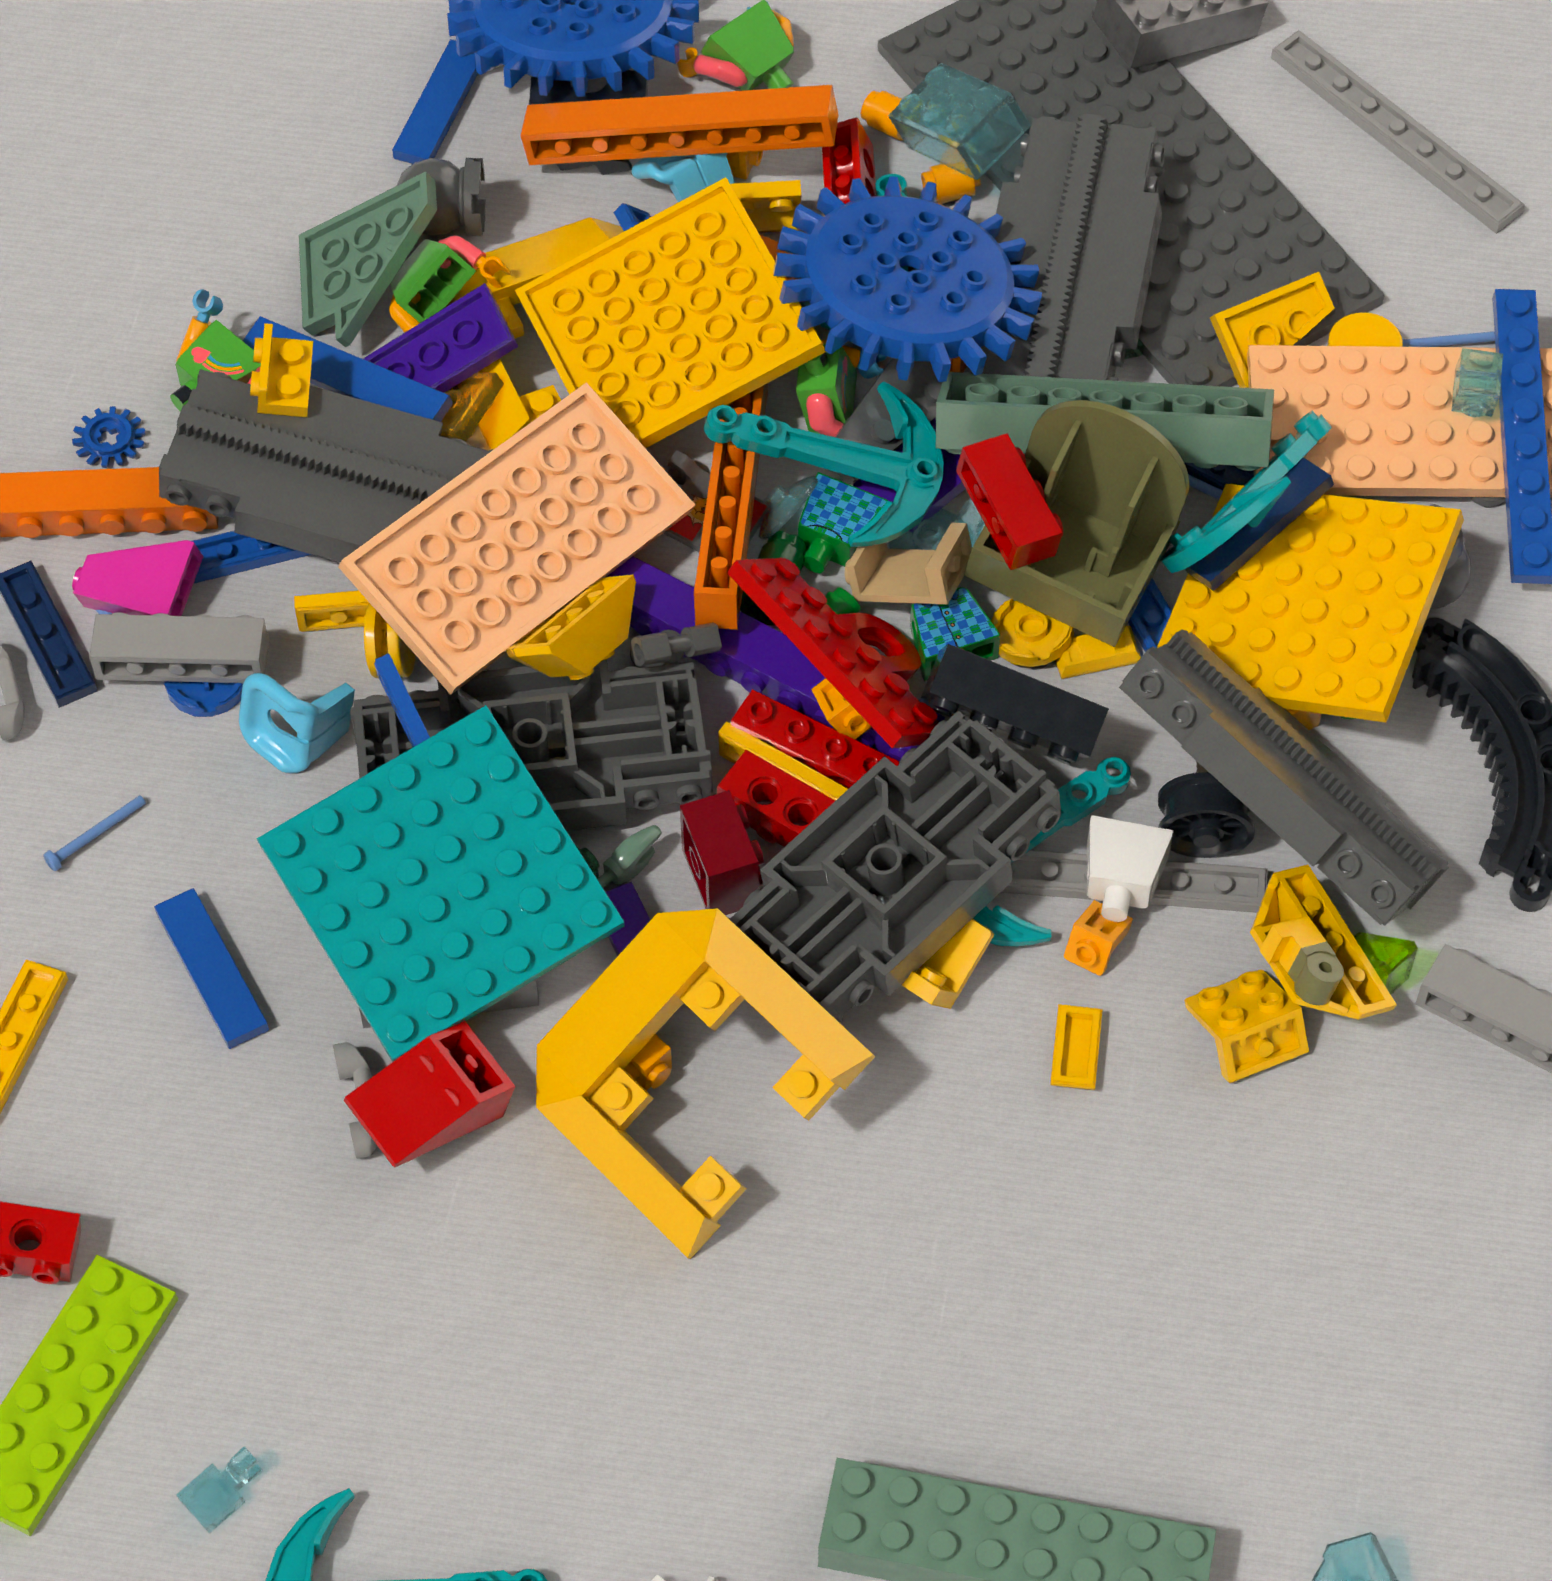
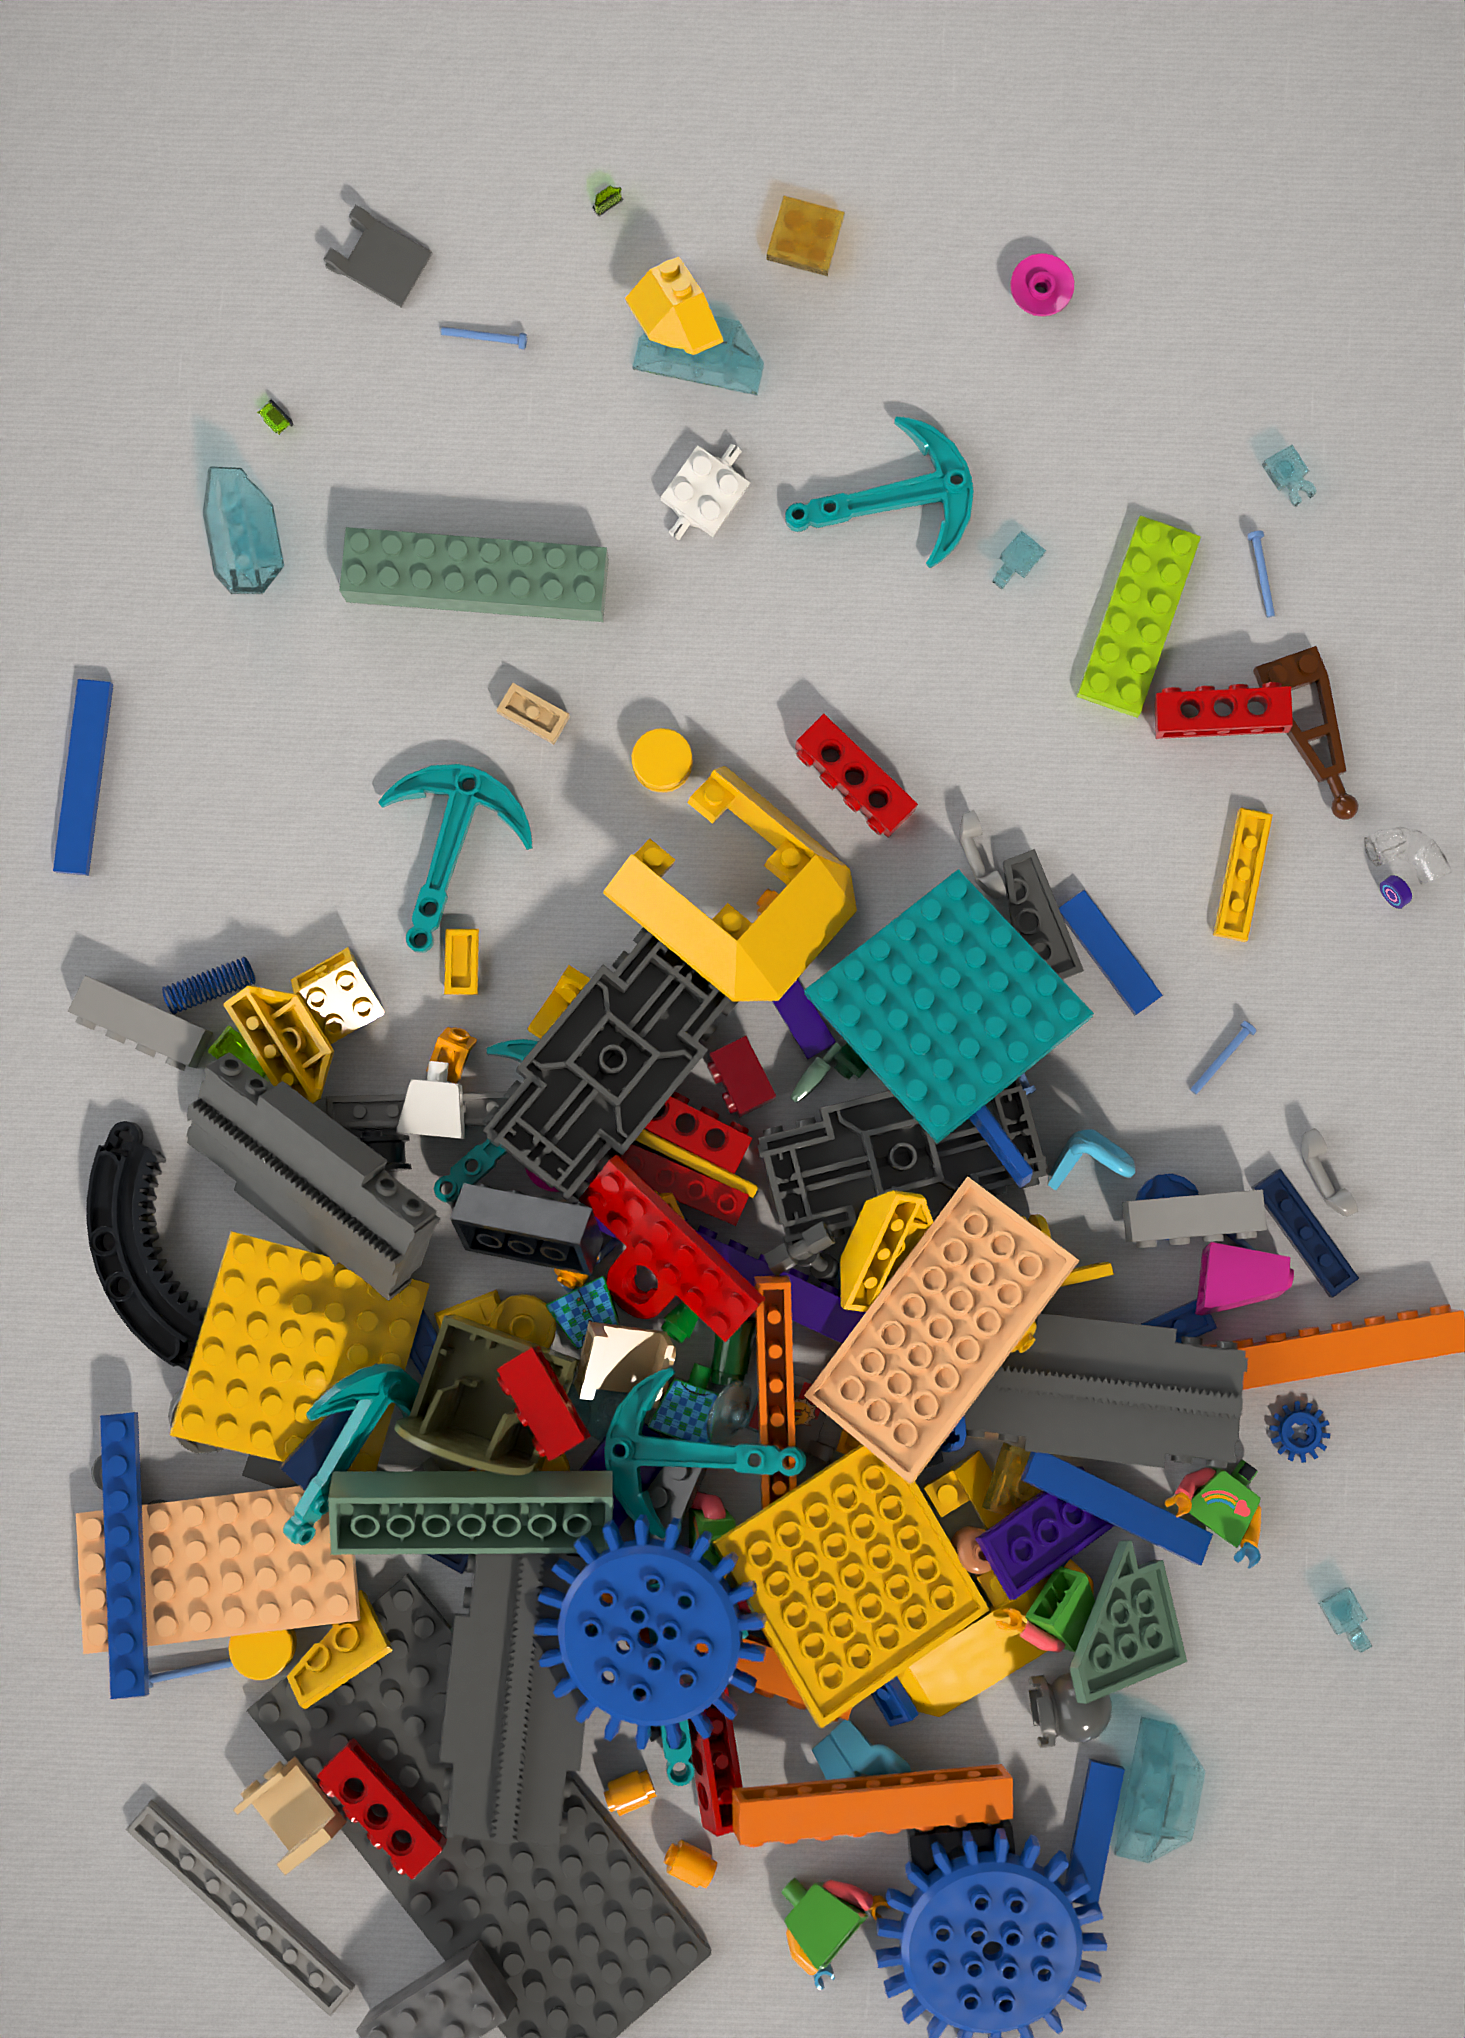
camera: 170 degrees right, 25 degrees up
(106, 257) = (1345, 1615): none -> clear light blue plate
(283, 374) = (1165, 1465): yellow bracket -> none
(299, 1009) = (1037, 915): none -> dark grey wing
(357, 129) = (1160, 1794): none -> clear light blue wedge
(432, 1095) = (926, 849): red slope -> none
(529, 358) = (968, 1550): none -> nougat head
(541, 1272) = (826, 735): none -> red brick
(770, 203) = (789, 1737): yellow bracket -> none
(774, 1267) = (662, 760): none -> yellow head
(949, 1350) = (533, 713): none -> tan plate
(959, 120) = (625, 1840): clear light blue brick -> none
(1059, 1243) = (455, 825): none -> teal piece
(1231, 182) = (379, 1788): none -> red brick
(1305, 958) = (287, 1019): leg -> none
(1326, 198) = (294, 1811): none -> tan panel
(1465, 1030) = (246, 965): none -> blue piece
(1477, 382) = (161, 1592): clear light blue brick -> none

